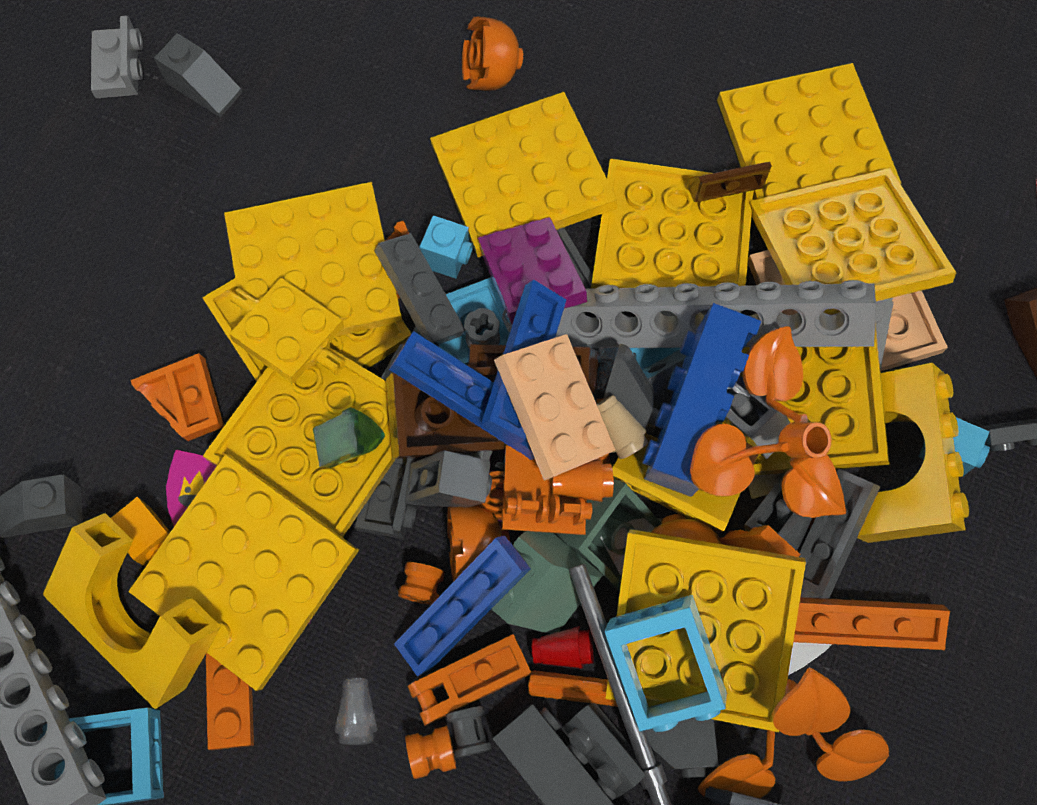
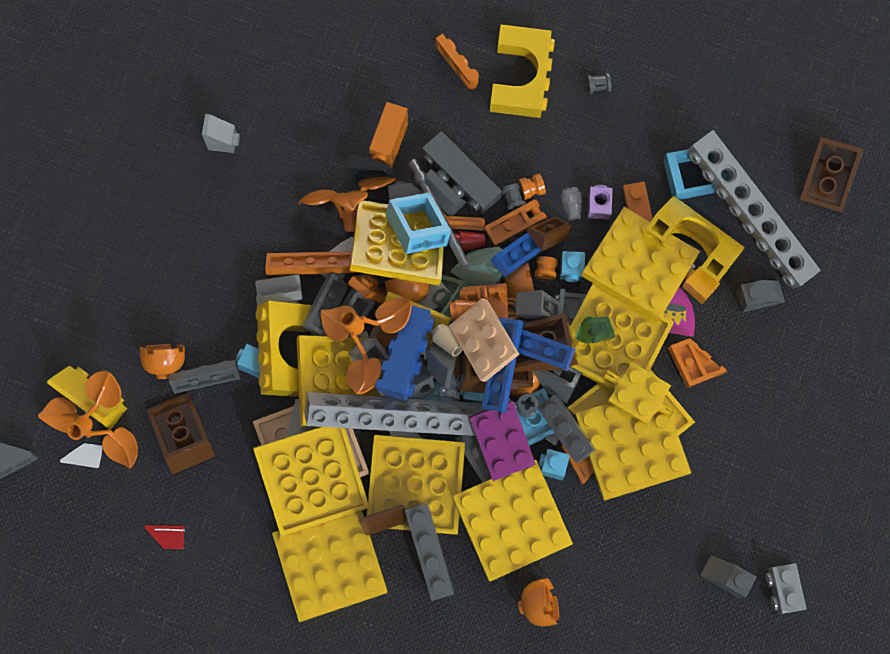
camera: 175 degrees right, 5 degrees up
(292, 692) = (598, 211): none -> lavender brick
(372, 580) = (572, 266): none -> medium azure brick
(408, 650) = (549, 232): none -> reddish brown slope
(657, 130) = (429, 551): none -> dark grey brick
(919, 568) = (279, 289): none -> light grey bracket

